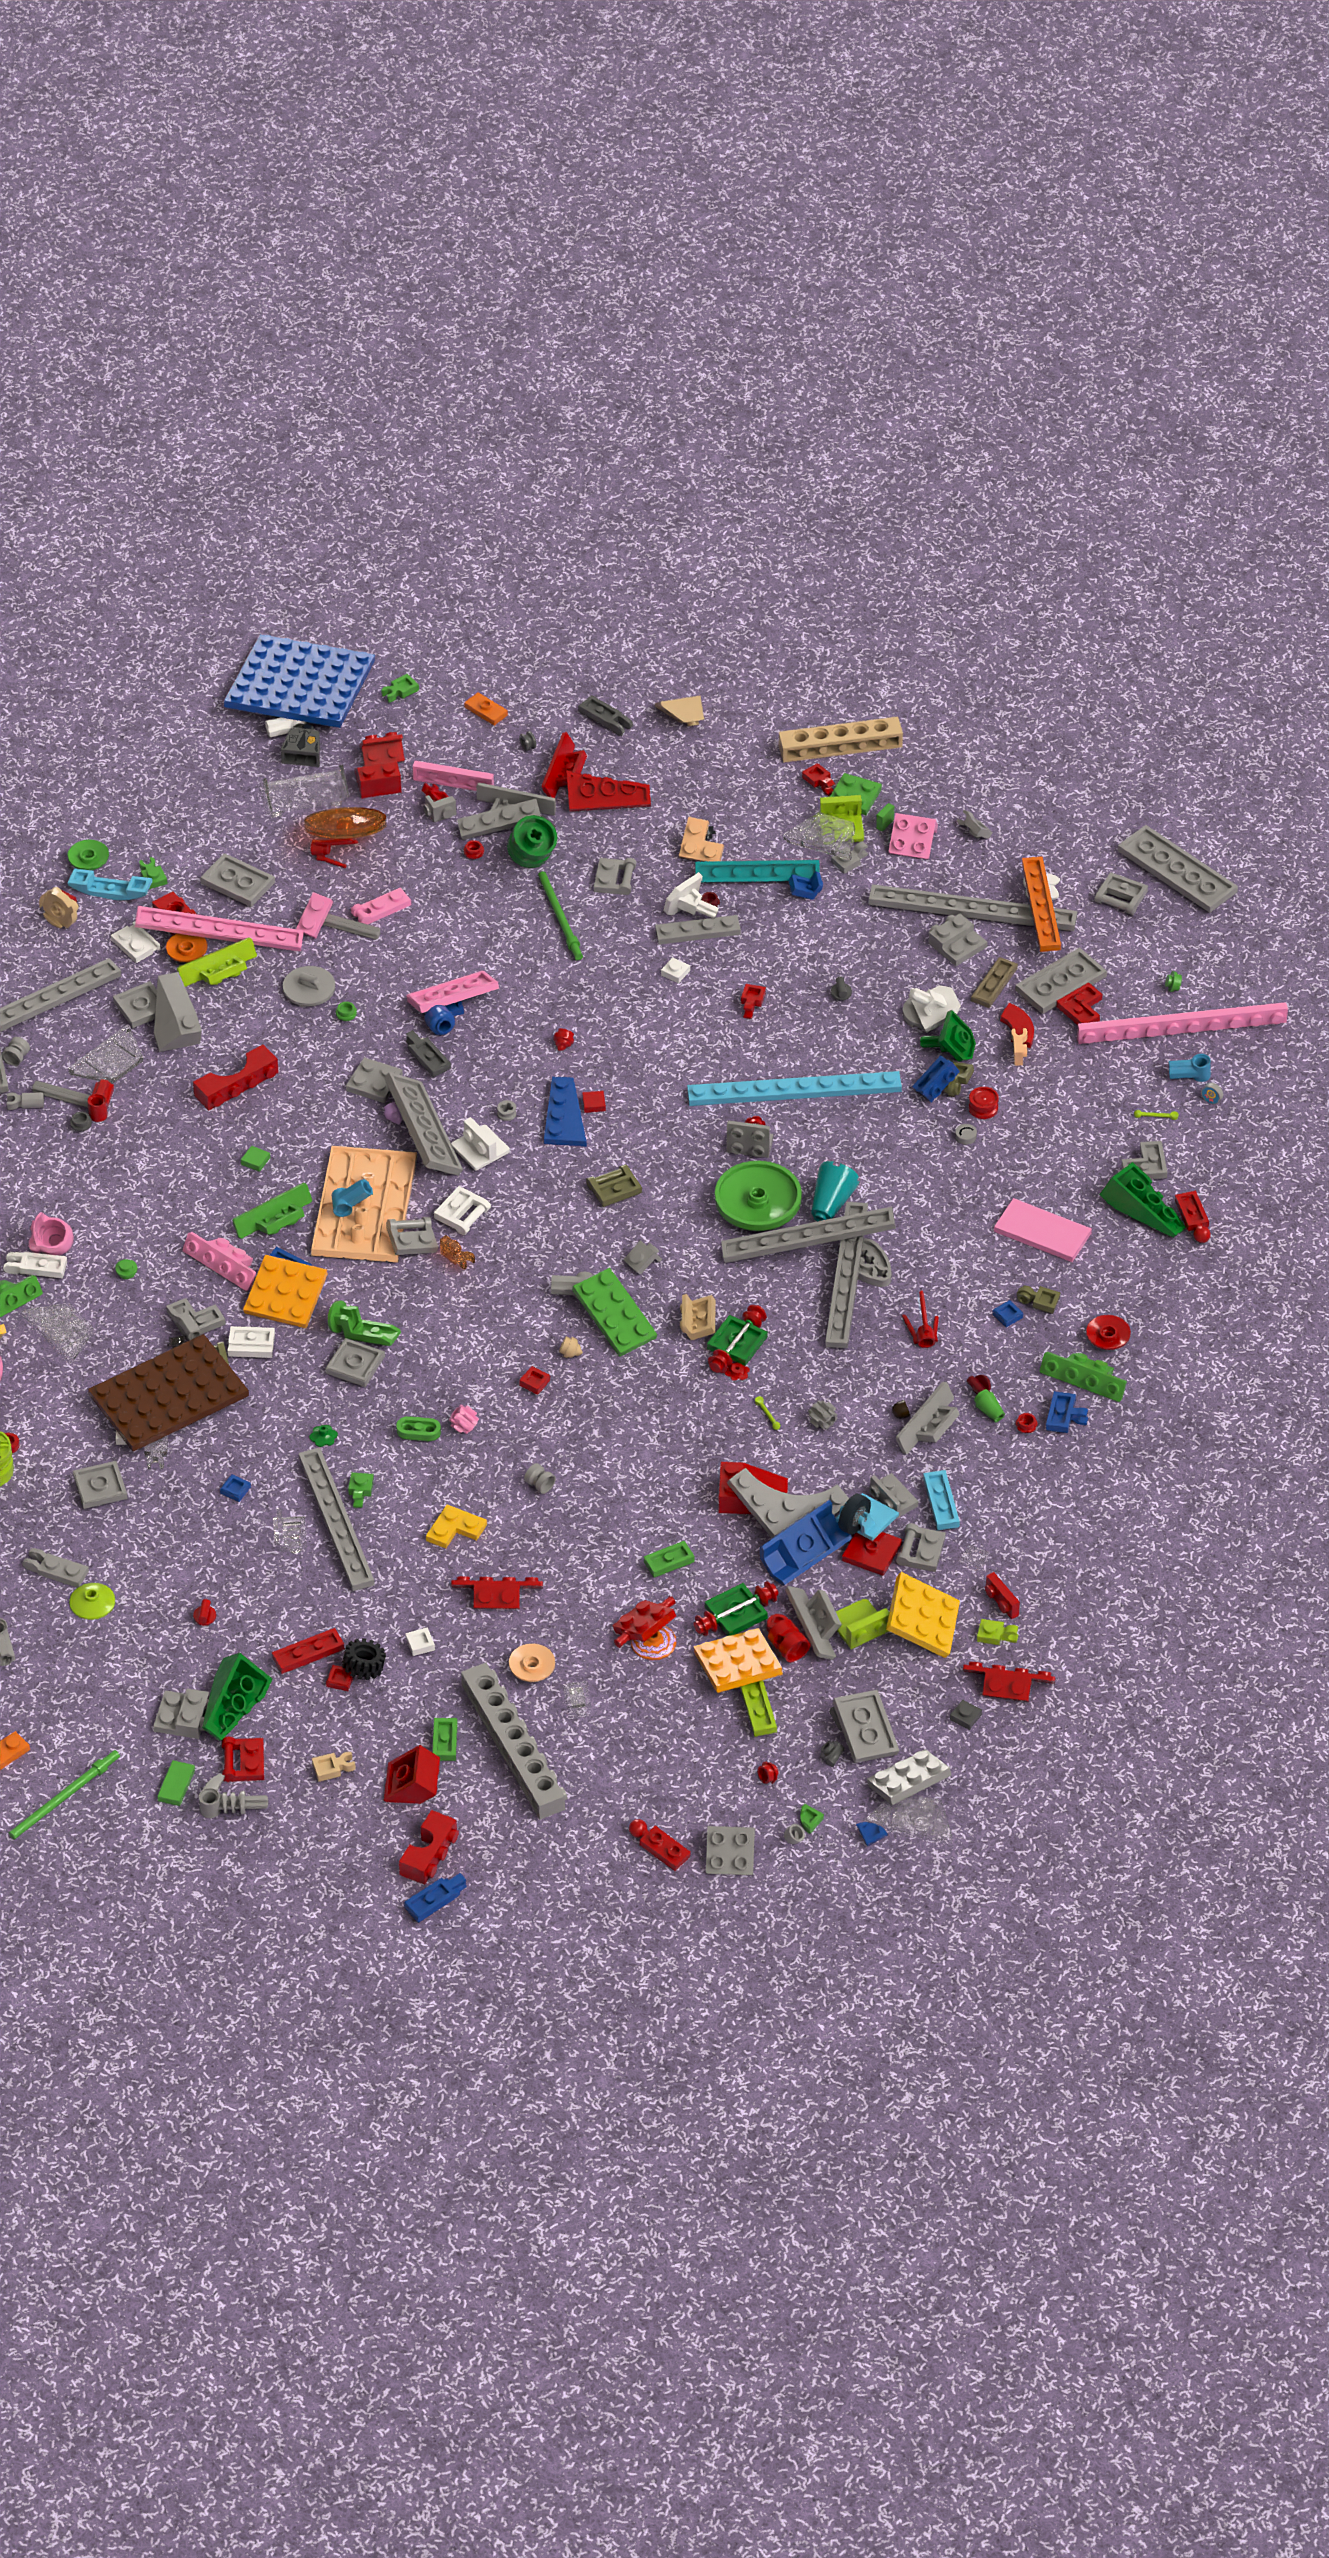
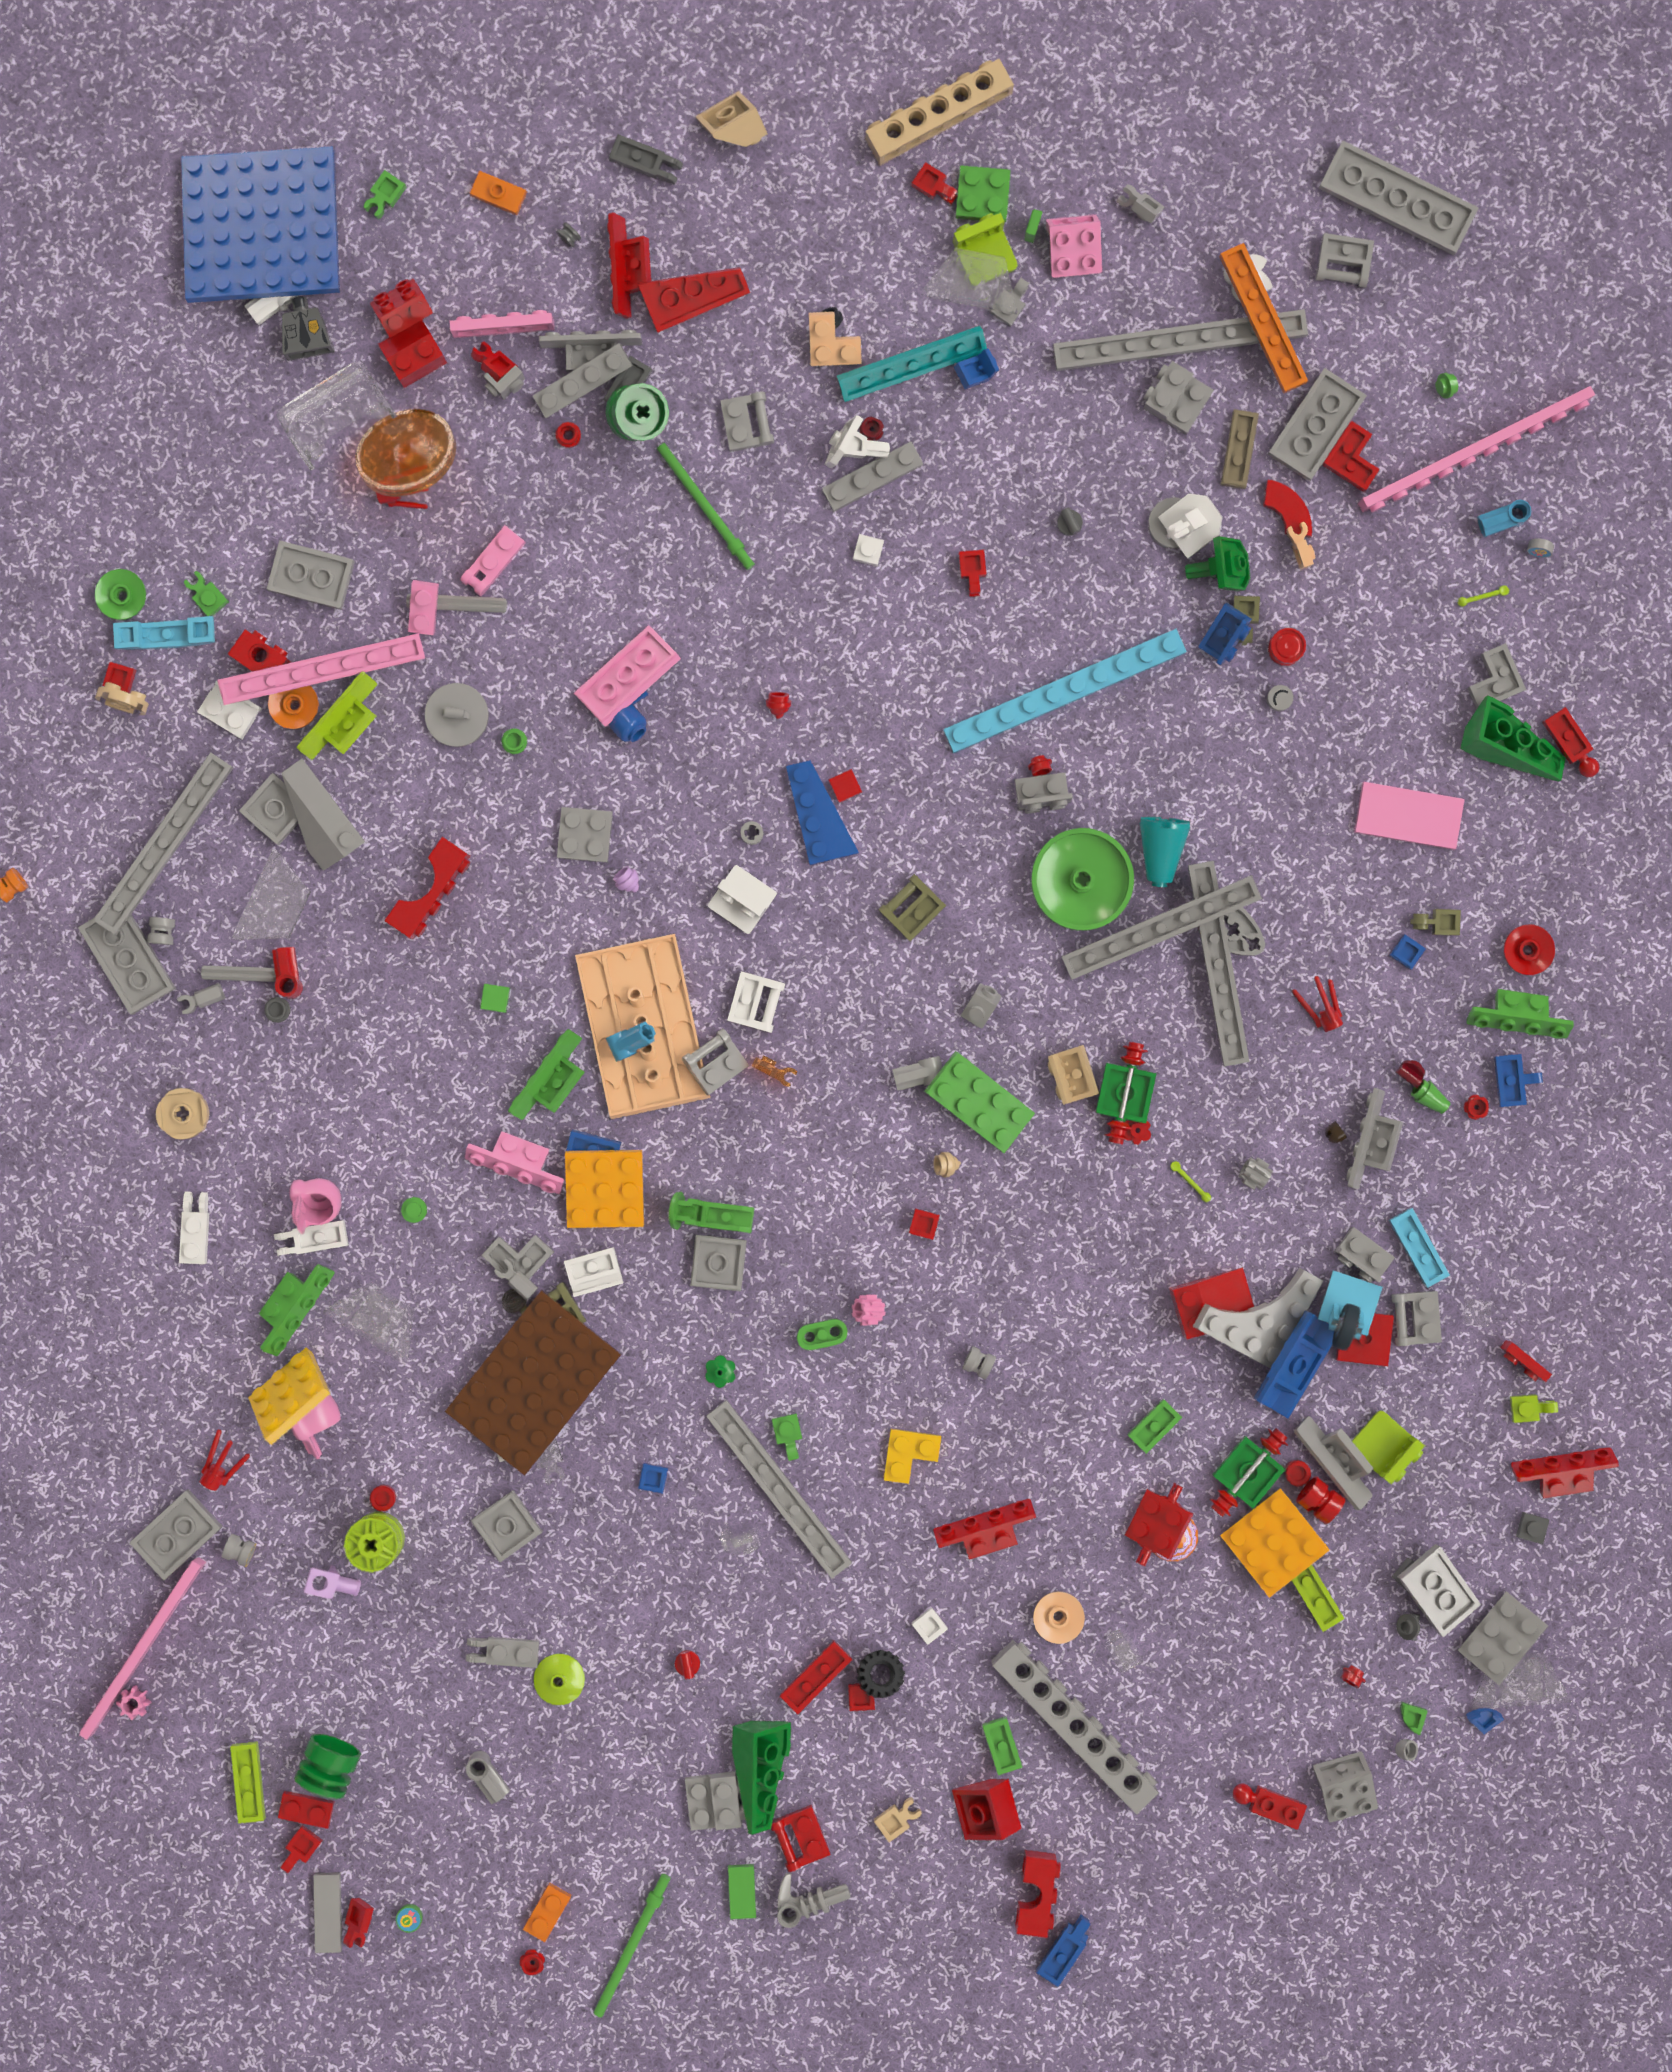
camera: 20 degrees left, 40 degrees up
(423, 1124) = (668, 894): light grey plate -> none
(427, 1054) = (632, 779): dark grey hinge -> none
(923, 1615) = (1454, 1424): yellow plate -> none

